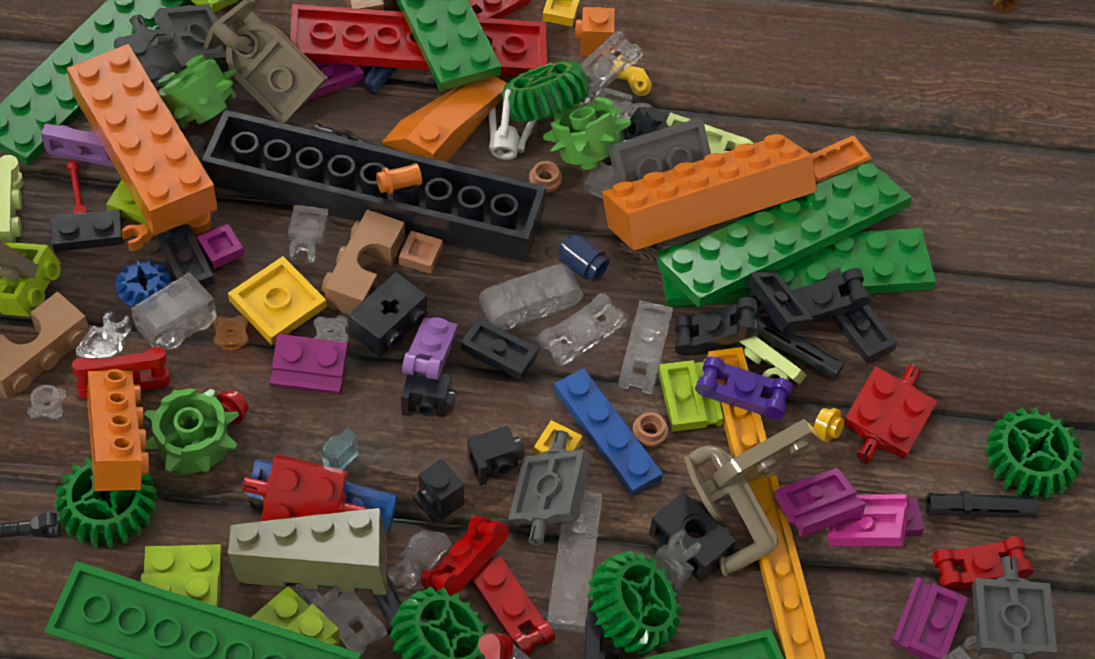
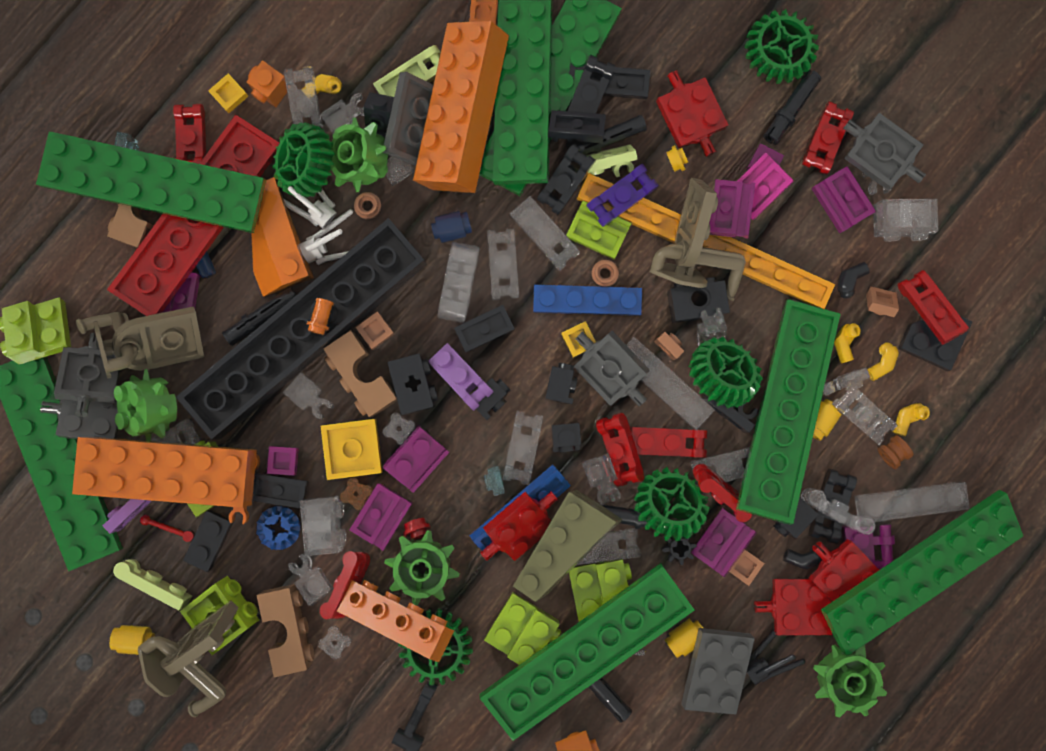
camera: 50 degrees left, 30 degrees up
(222, 366) = (380, 516): none -> magenta plate
(394, 459) = (522, 448): none -> clear plate
(468, 155) = (315, 246): none -> white plant
(623, 535) = (670, 345): none -> nougat plate

